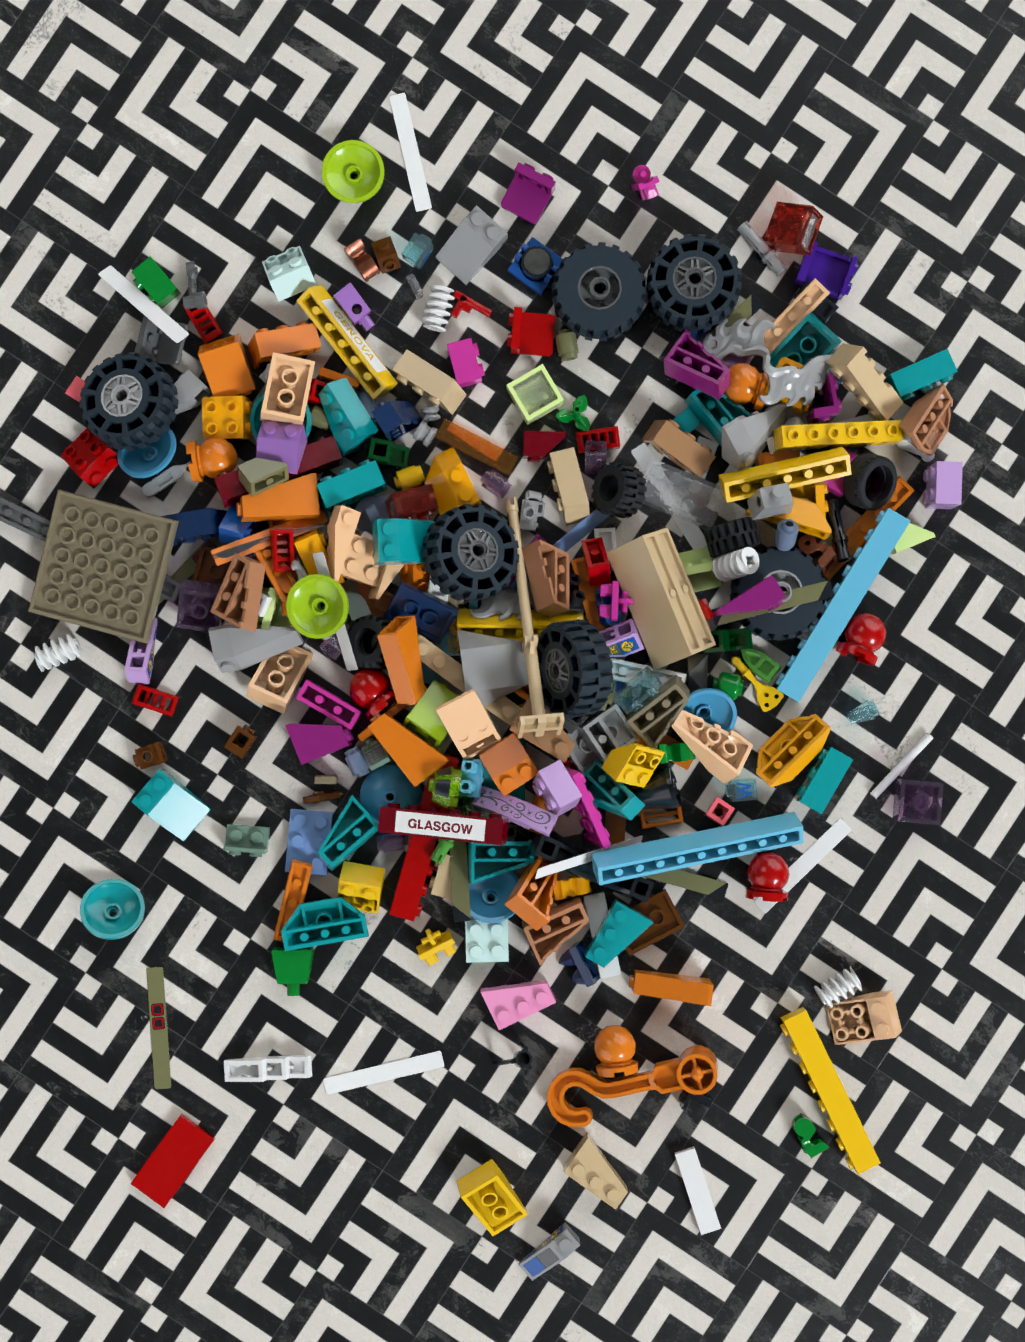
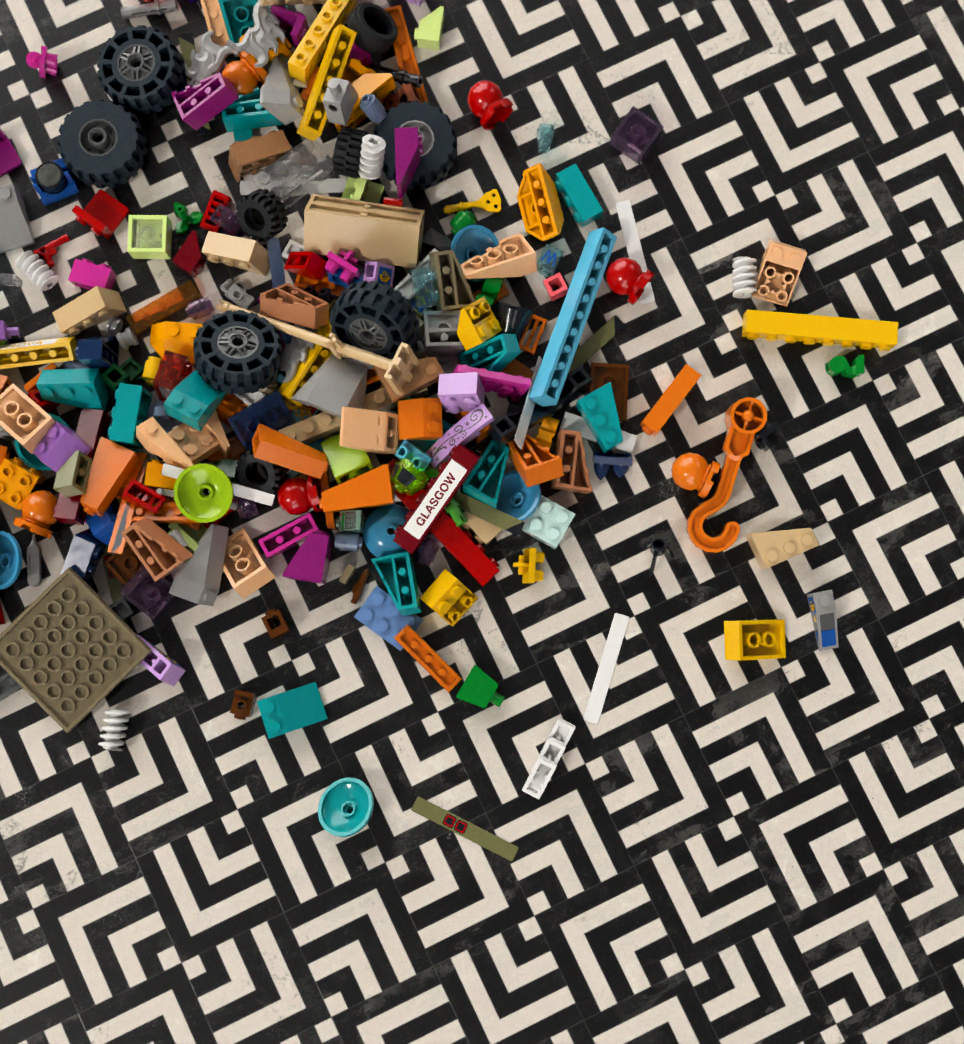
camera: 60 degrees left, 5 degrees down
(135, 700) = (184, 679): red slope -> none
(172, 1161) = (578, 881): red tile -> none
(247, 839) = (356, 666): sand green bracket -> none
(319, 418) = (64, 411): olive brick -> none
(323, 923) = (459, 642): teal wedge -> none
(517, 1001) = (611, 528): bright pink wedge -> none
(567, 345) = (128, 192): olive brick -> none
(697, 1190) = (840, 476): white tile -> none
(731, 640) = (430, 201): dark green brick -> none
(760, 664) = (462, 191): bright green plate -> none
(799, 596) = (426, 127): olive sticker -> none
(843, 604) = (453, 102): medium azure brick -> none
(901, 765) = (602, 134): white bar -> none

